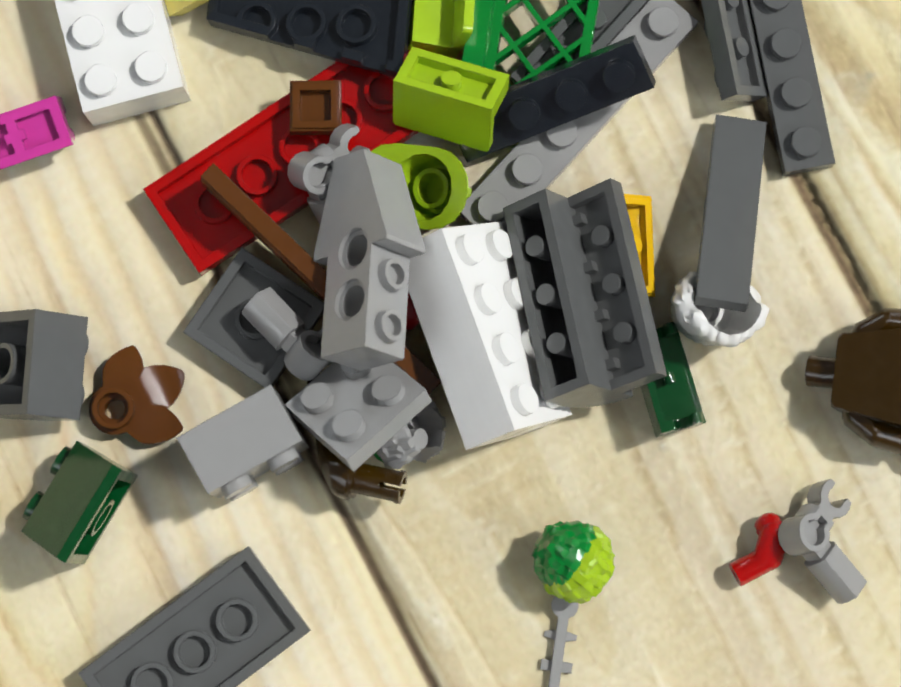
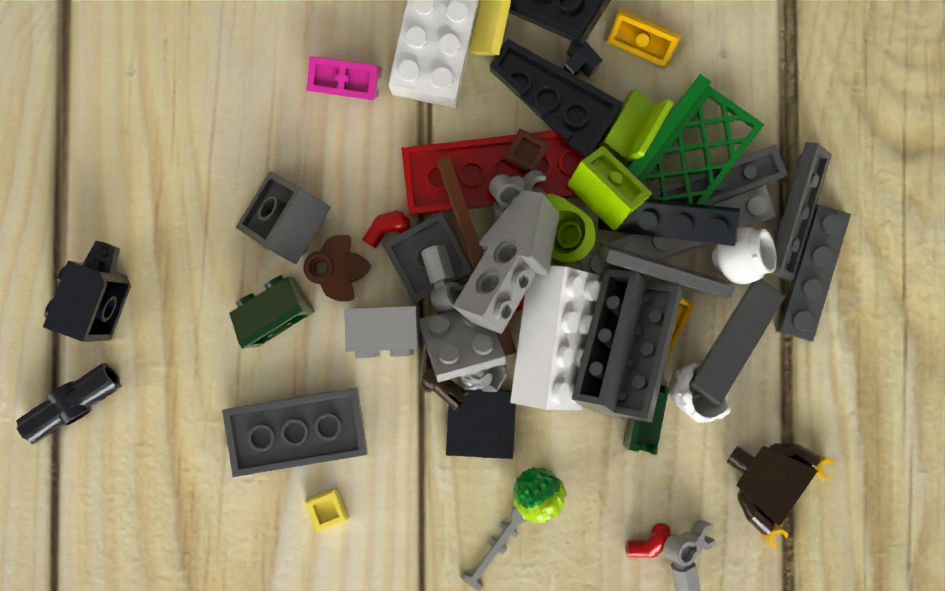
camera: 25 degrees right, 5 degrees up
(172, 304) = (386, 223): none -> red arm
(448, 509) = (482, 426): none -> black tile
(583, 170) = (664, 271): none -> dark grey tile
(684, 94) = (748, 259): none -> white piece

